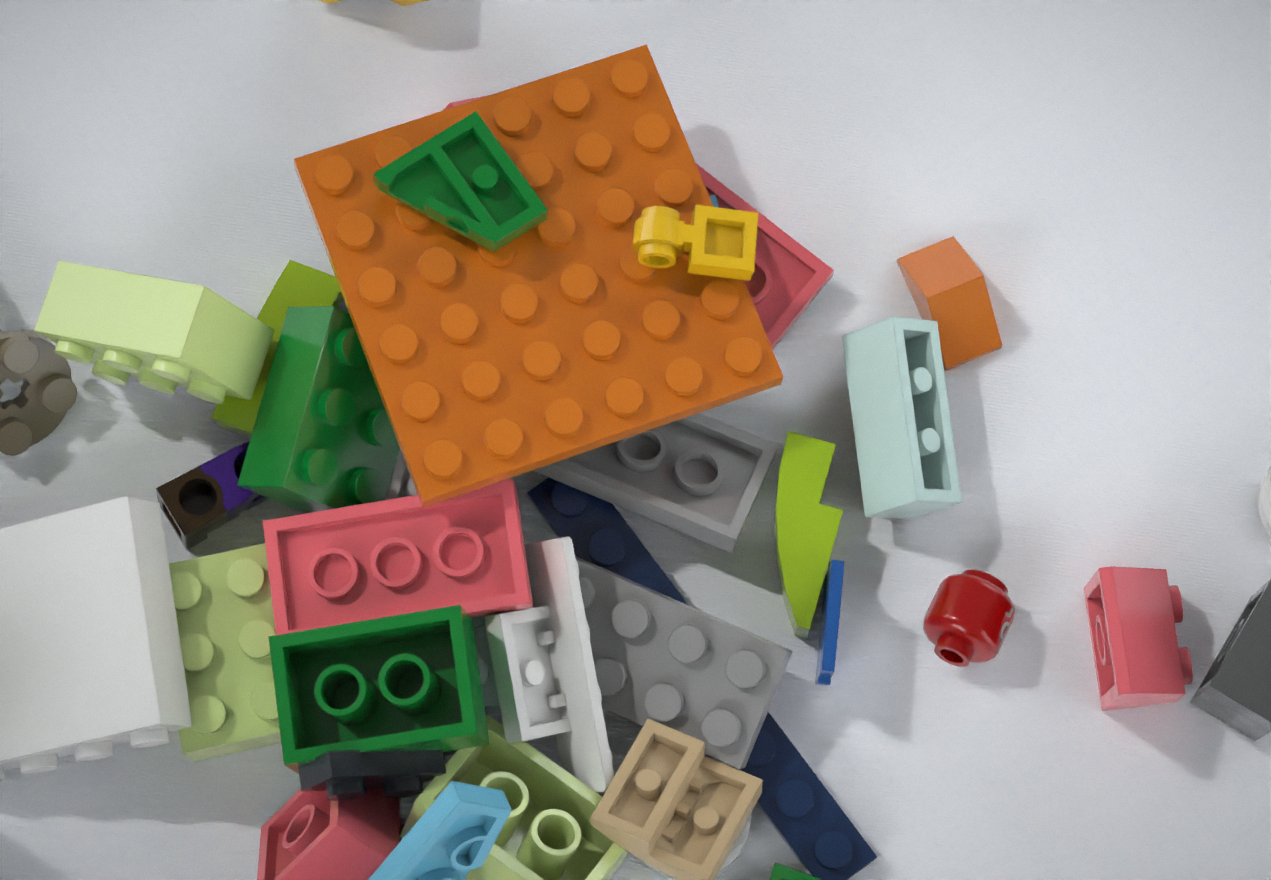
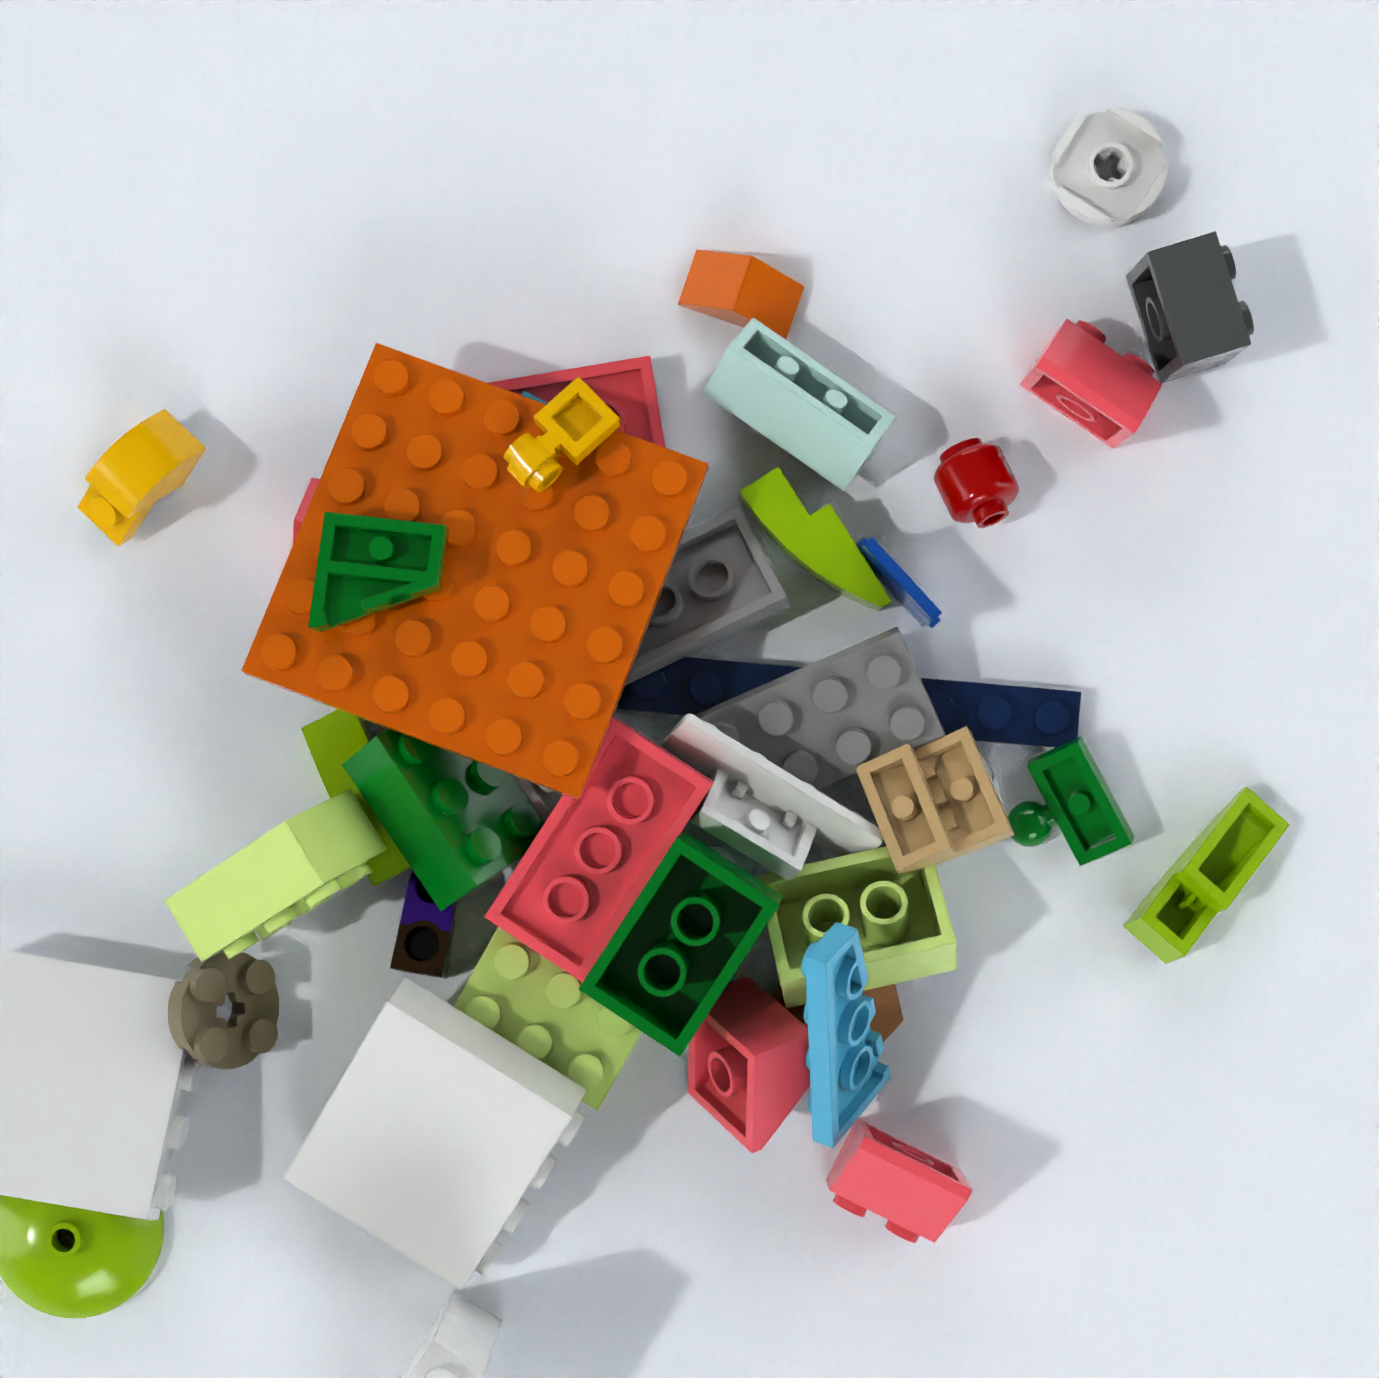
camera: 50 degrees left, 10 degrees up
(351, 772) = (724, 1016): black plate -> none

